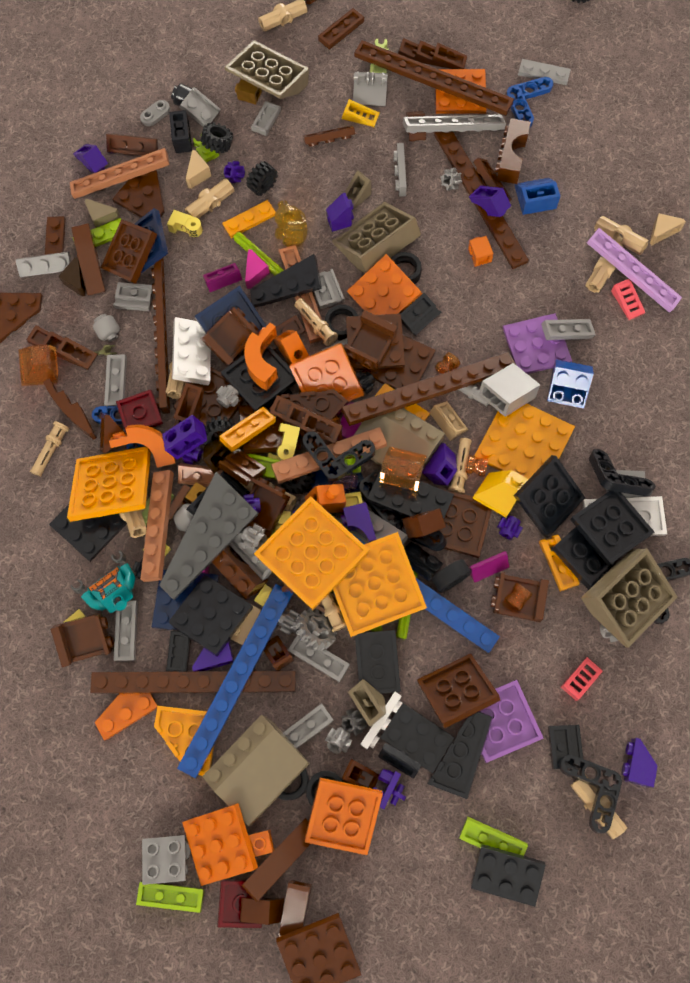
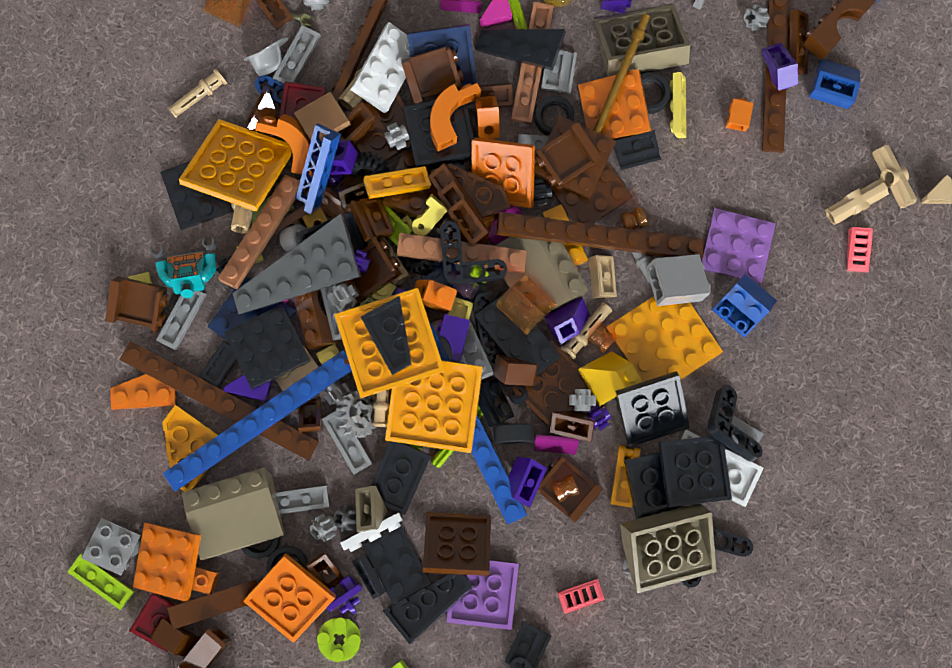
camera: 20 degrees right, 10 degrees up
(72, 411) = (239, 69): reddish brown slope -> none
(93, 391) = (268, 59): none -> light grey piece
(161, 412) = (322, 111): none -> medium nougat tile
(182, 448) = (321, 166): none -> fence
(308, 544) = (389, 334): none -> black wing
(320, 327) = (528, 111): tan pin -> none
(373, 229) = (637, 36): none -> pearl gold bar
(415, 824) = (326, 639): none -> lime plate
(430, 267) = (678, 105): none -> light yellow plate
(482, 606) = (525, 479): none -> dark purple slope
(491, 518) = (582, 400): none -> light grey gear
(495, 543) = (573, 425): none -> reddish brown slope
(568, 329) = (776, 249): light grey plate -> none
(634, 270) = (881, 222): lavender plate -> none

